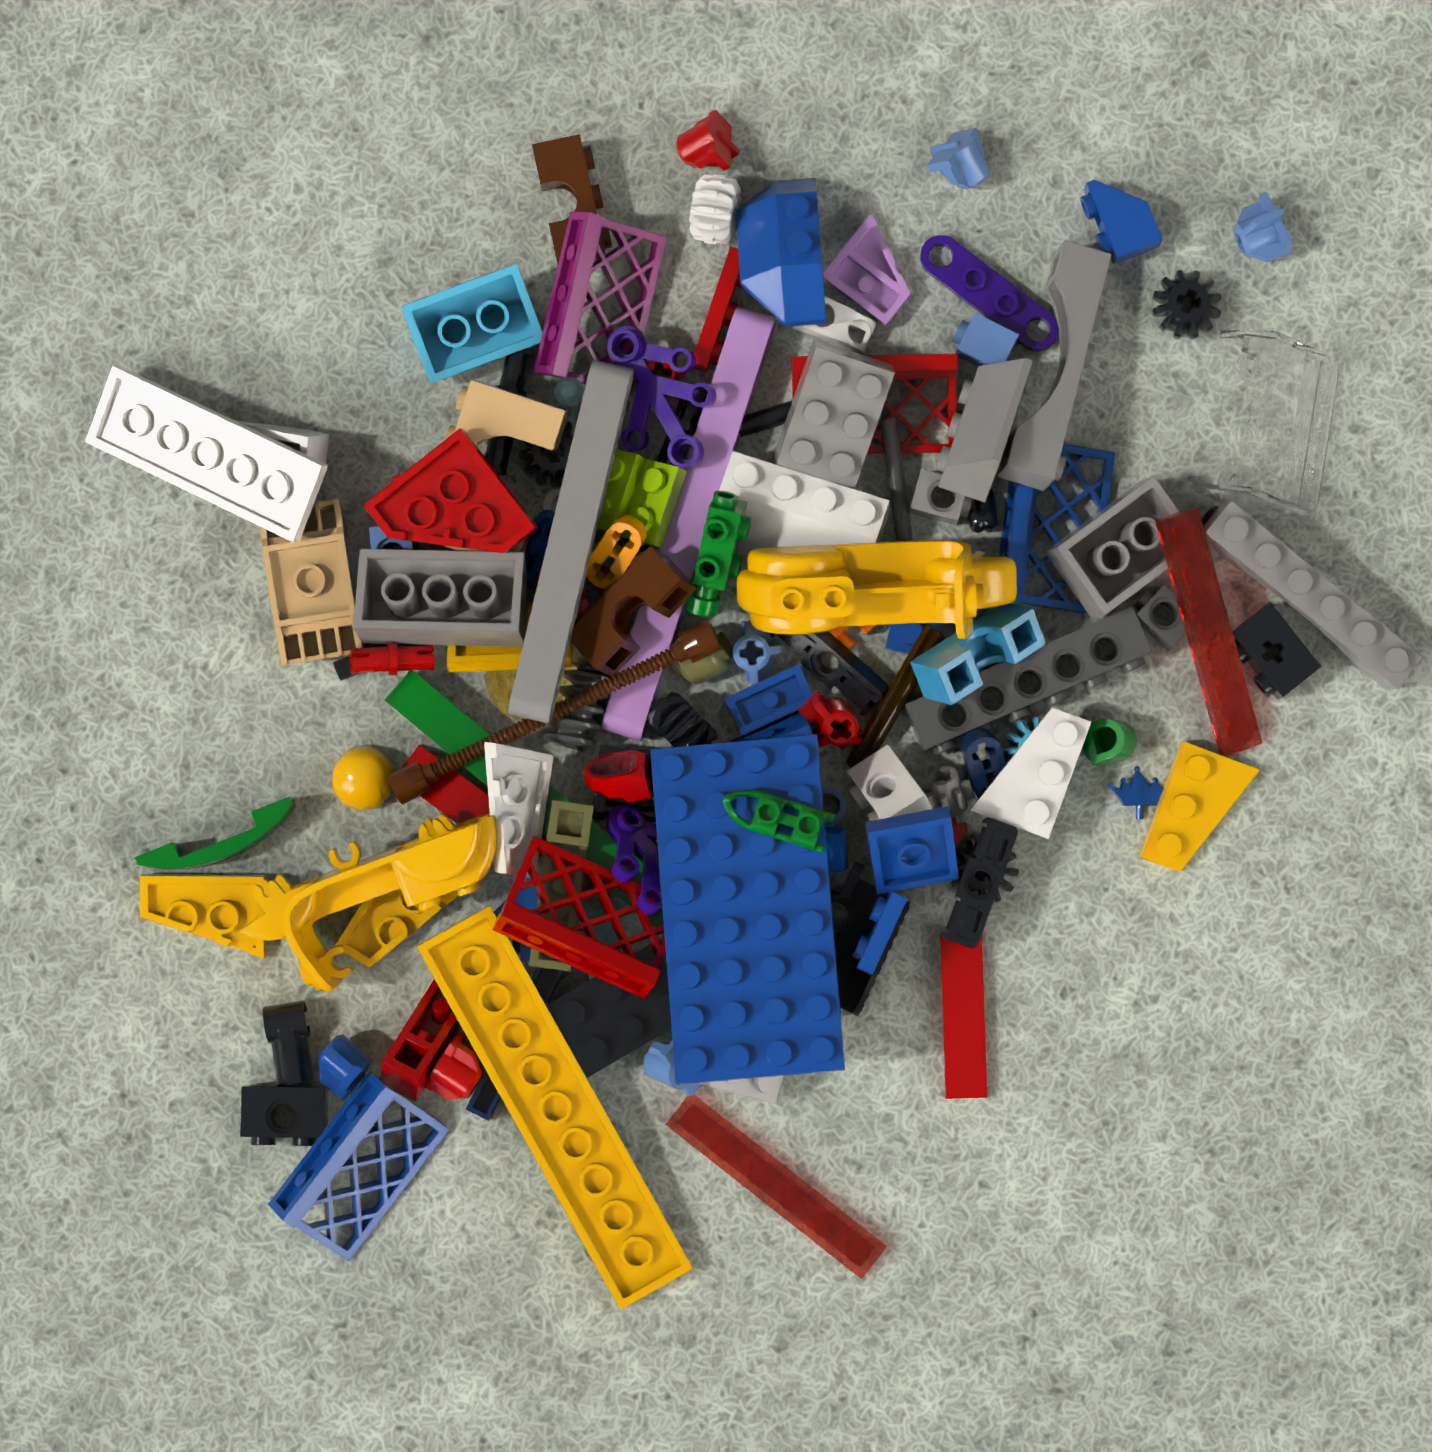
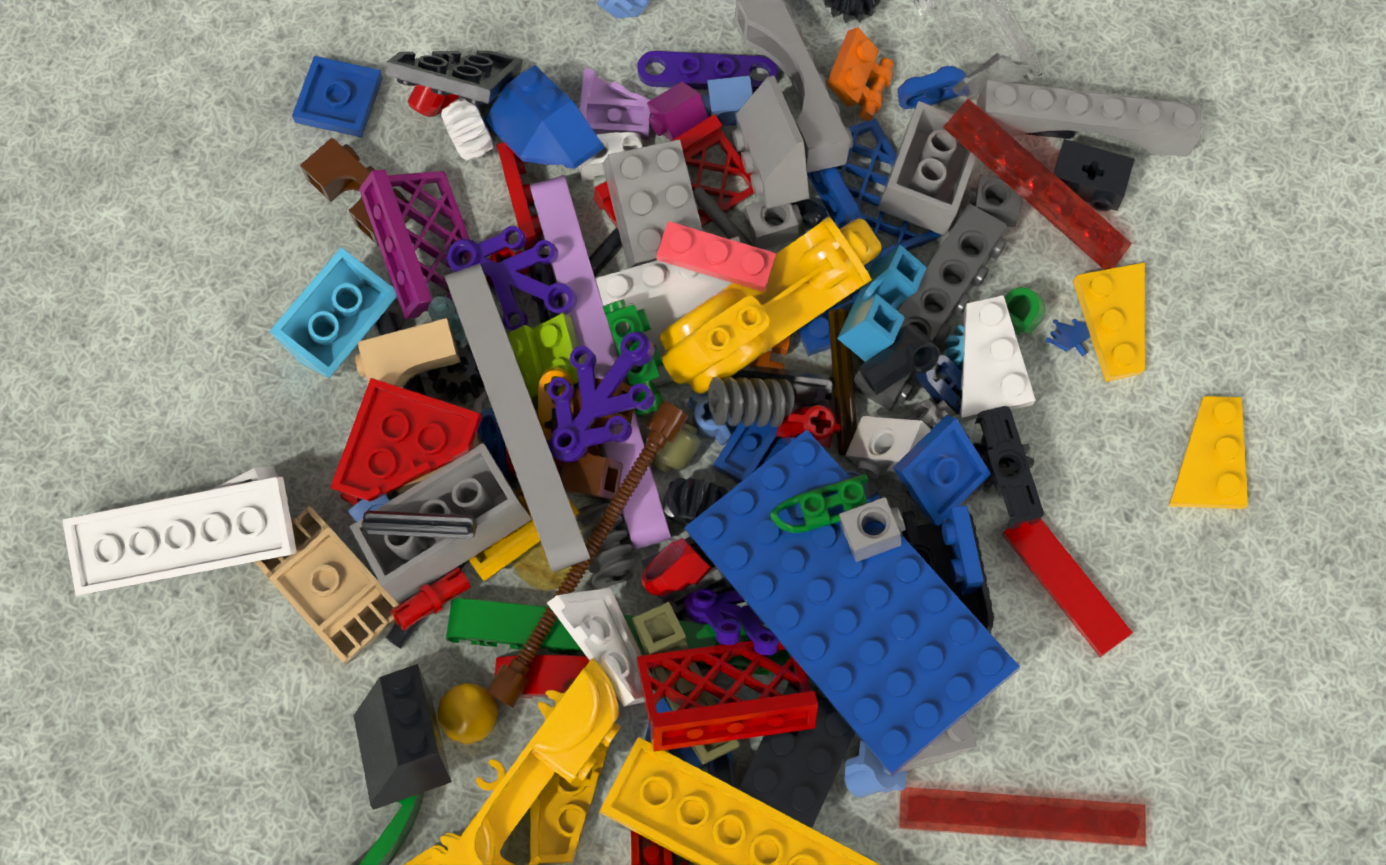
camera: 35 degrees left, 15 degrees down
(289, 768) = (400, 739): none -> black slope
(419, 595) = (419, 524): none -> black axle
(615, 83) = (337, 96): none -> blue plate
(647, 582) = (597, 401): none -> dark purple plant
(740, 151) = (446, 73): none -> black plate
(785, 860) = (866, 545): none -> light grey brick
(790, 668) = (750, 401): none -> dark grey piece
(851, 511) = (716, 256): none -> coral plate
(925, 324) = (676, 111): none -> magenta brick
(964, 722) = (908, 353): none -> black piece
(1122, 394) = (852, 70): none -> orange plate
(1174, 455) = (930, 88): none -> blue plate
(1182, 993) = (1214, 458): none -> yellow wing

